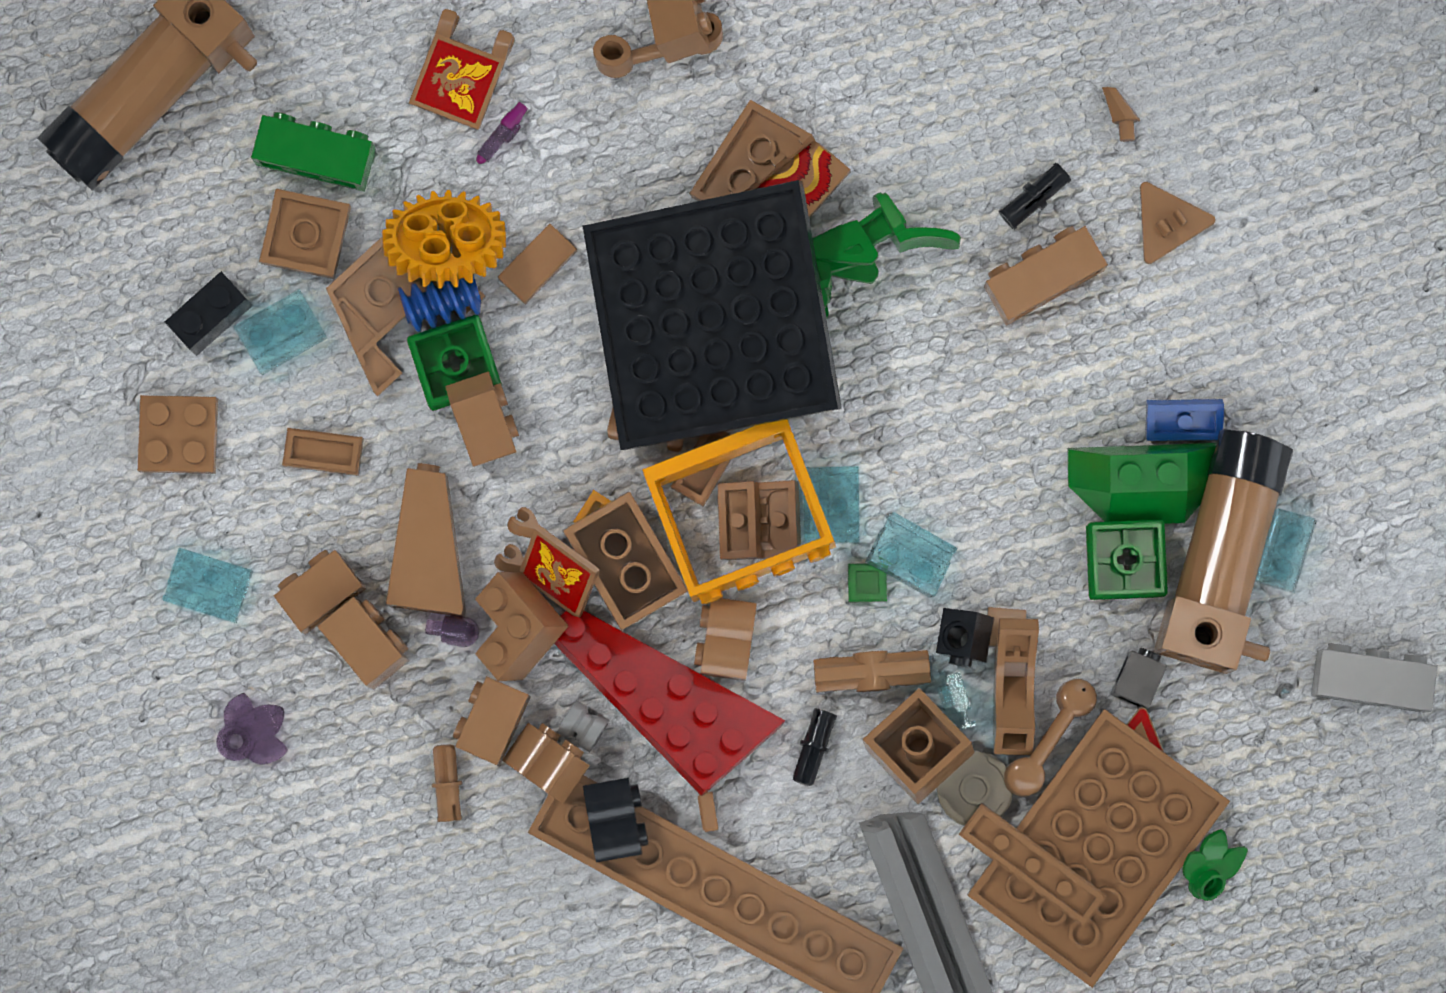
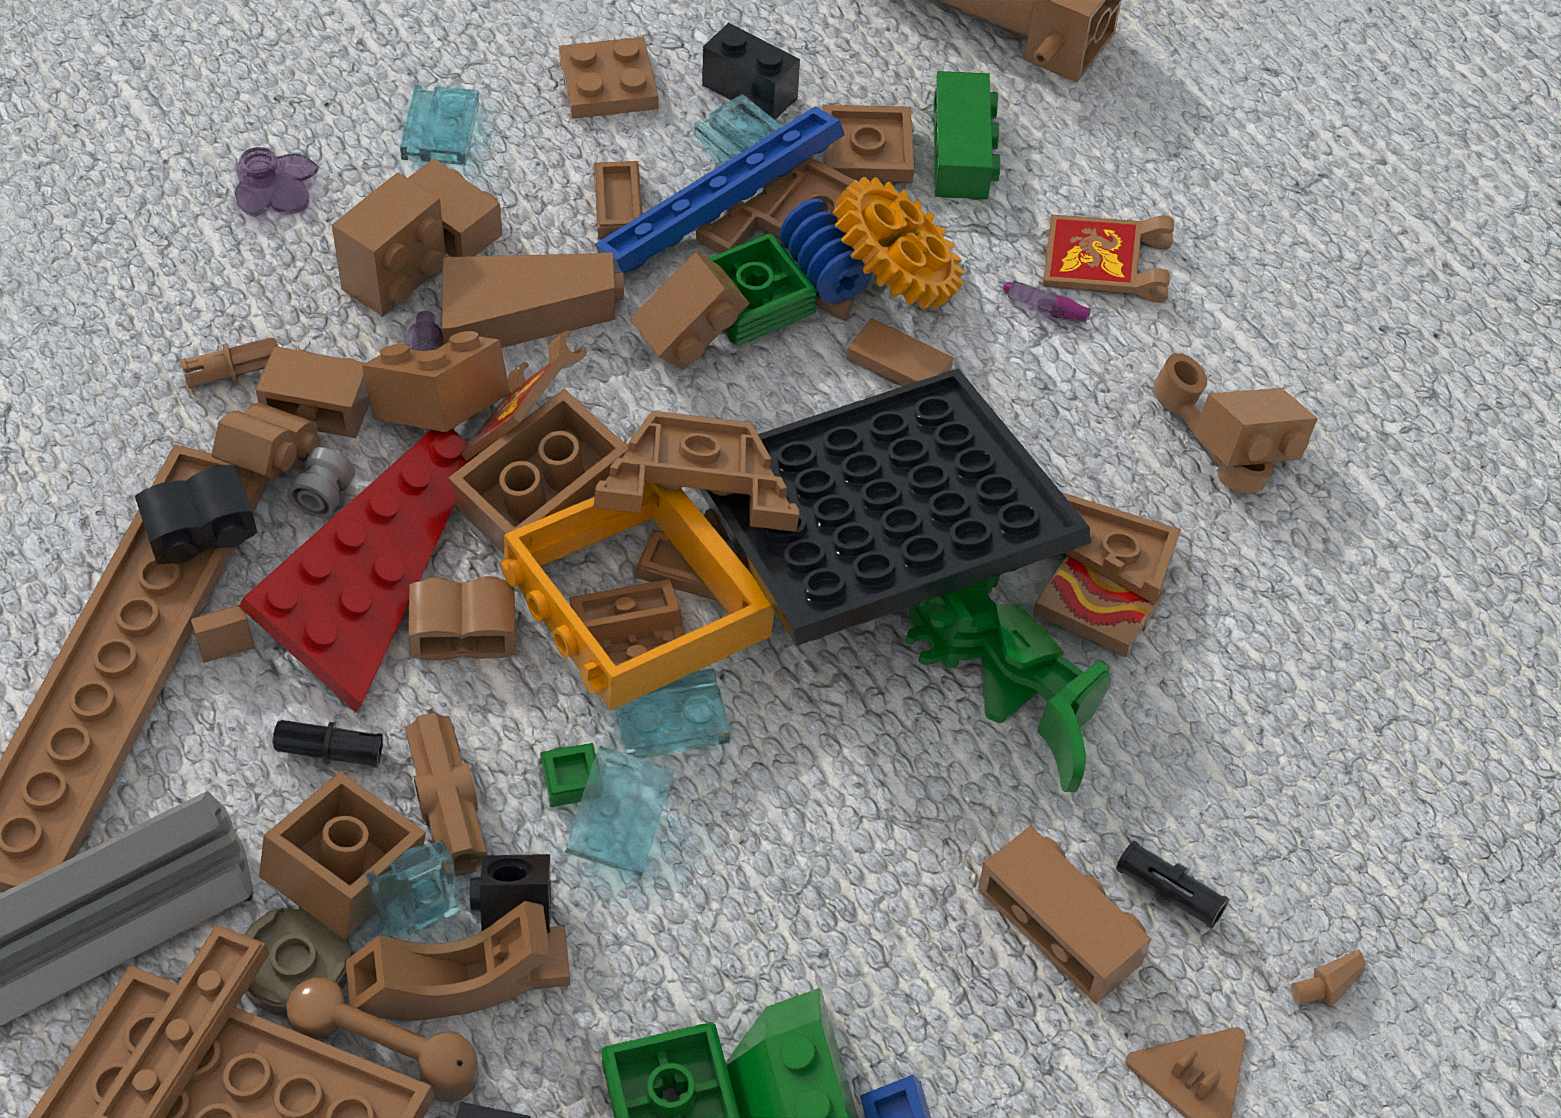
camera: 70 degrees right, 30 degrees down
(349, 367) = (720, 189): none -> blue plate
(644, 440) = (700, 455): none -> medium nougat wing

